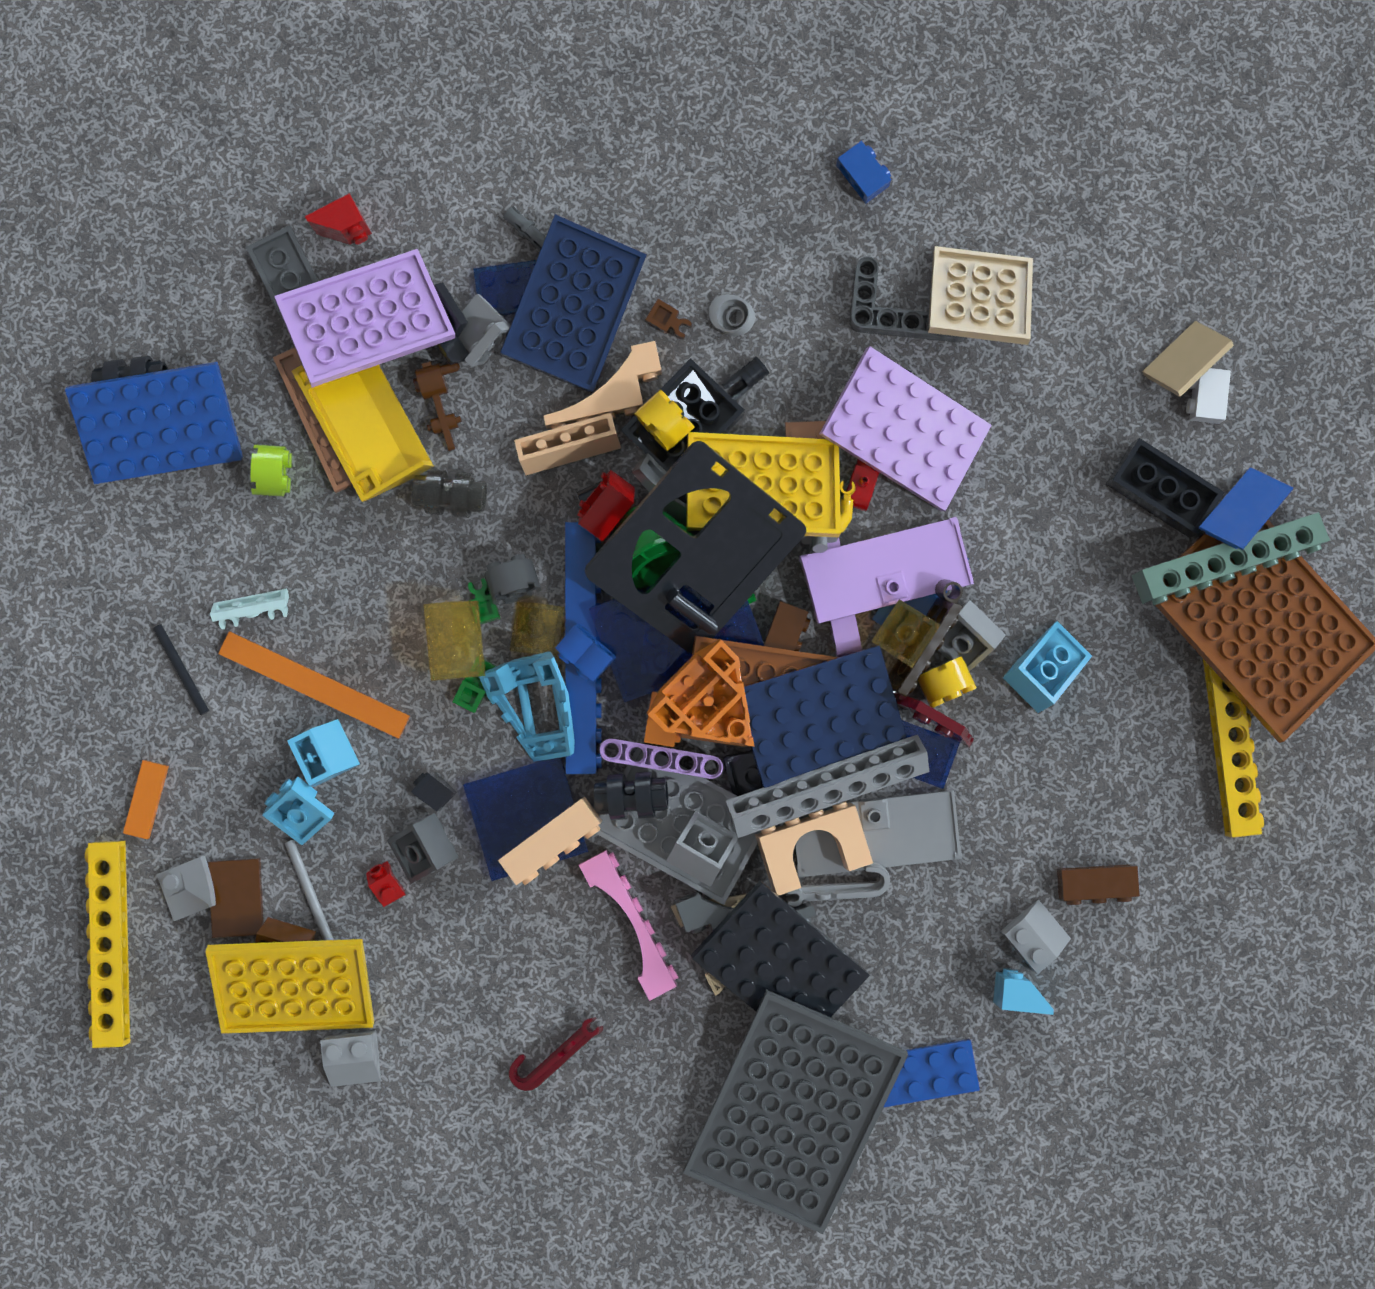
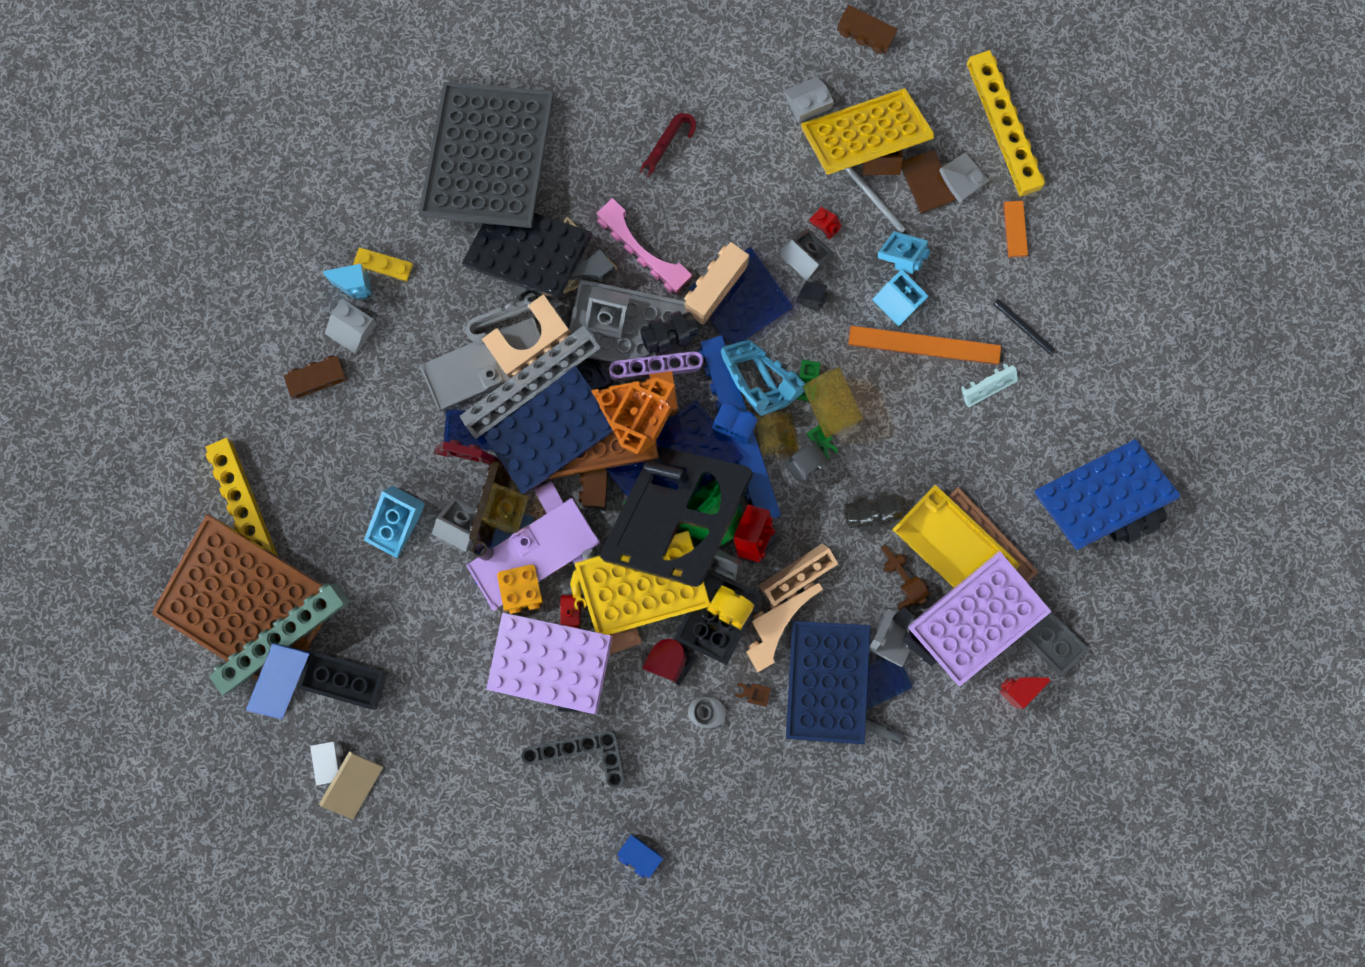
camera: 165 degrees right, 5 degrees down
(243, 1128) = (866, 30): none -> reddish brown brick
(270, 470) = (1010, 486): lime brick -> none
(761, 391) = (666, 659): none -> dark red tile
(915, 531) = (519, 589): none -> light orange bracket
(935, 1073) = (395, 212): blue plate -> none
(946, 682) = (465, 485): yellow brick -> none
(971, 1007) = (383, 264): none -> yellow plate
(981, 295) = (522, 784): tan plate -> none

